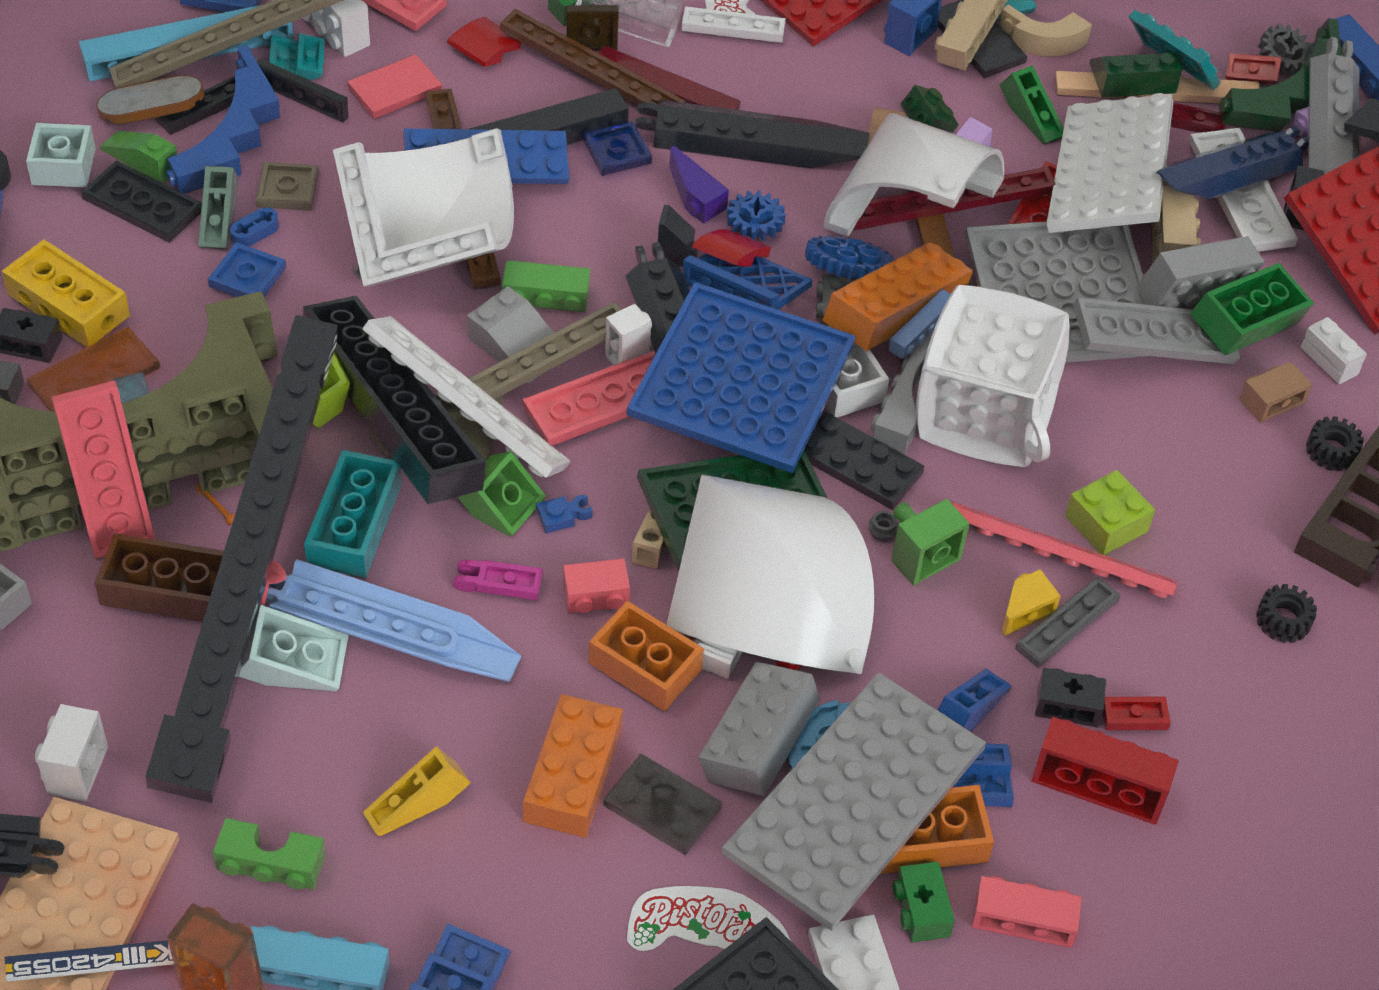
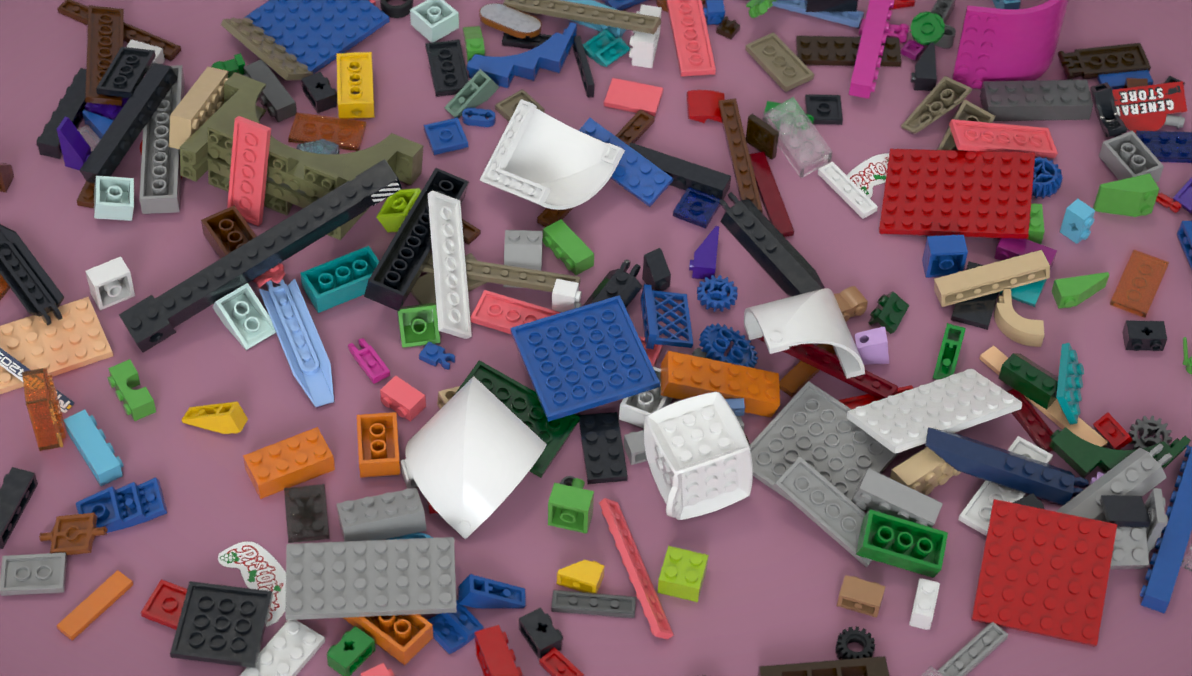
camera: 50 degrees right, 0 degrees up
(731, 247) = (678, 296): red slope -> none

